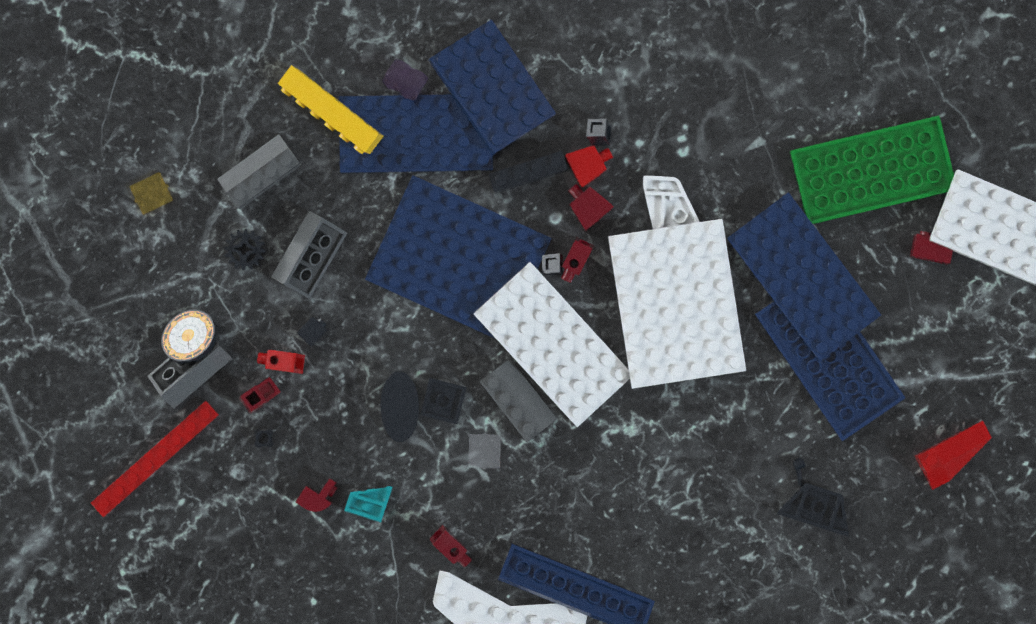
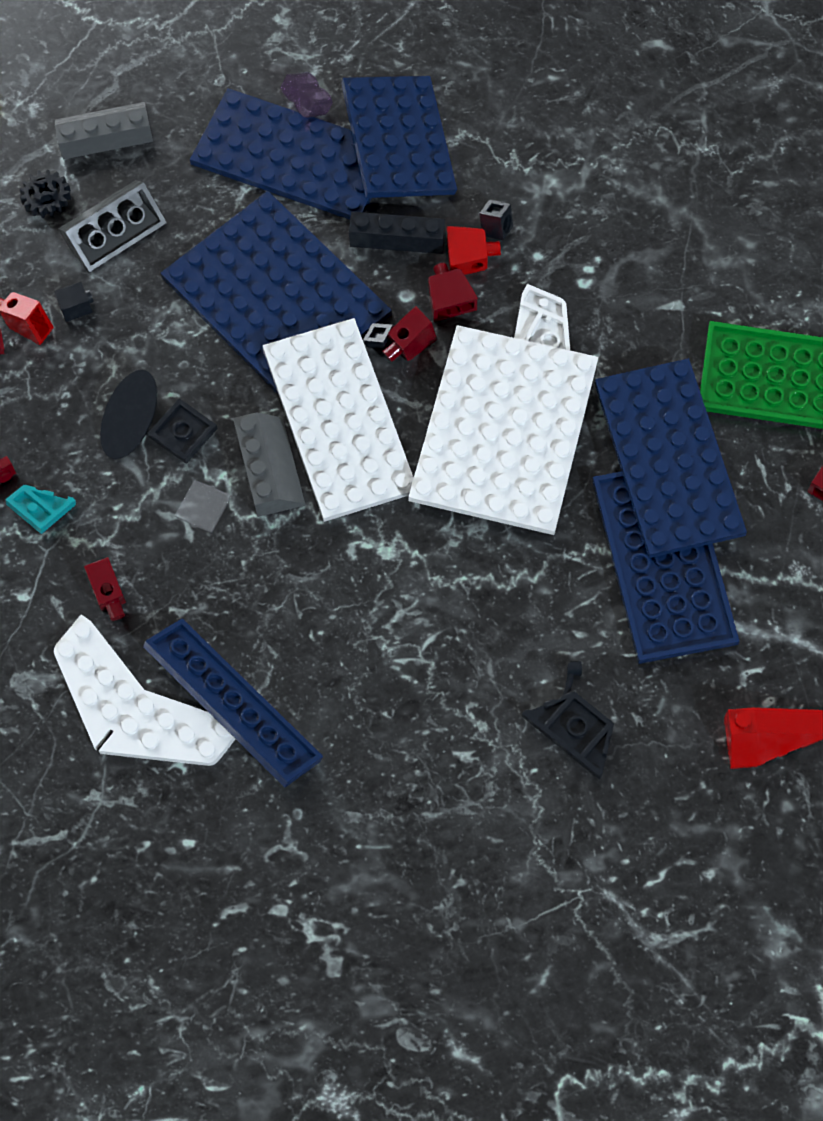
camera: 20 degrees right, 20 degrees down
(330, 109) = (211, 92): yellow brick -> none

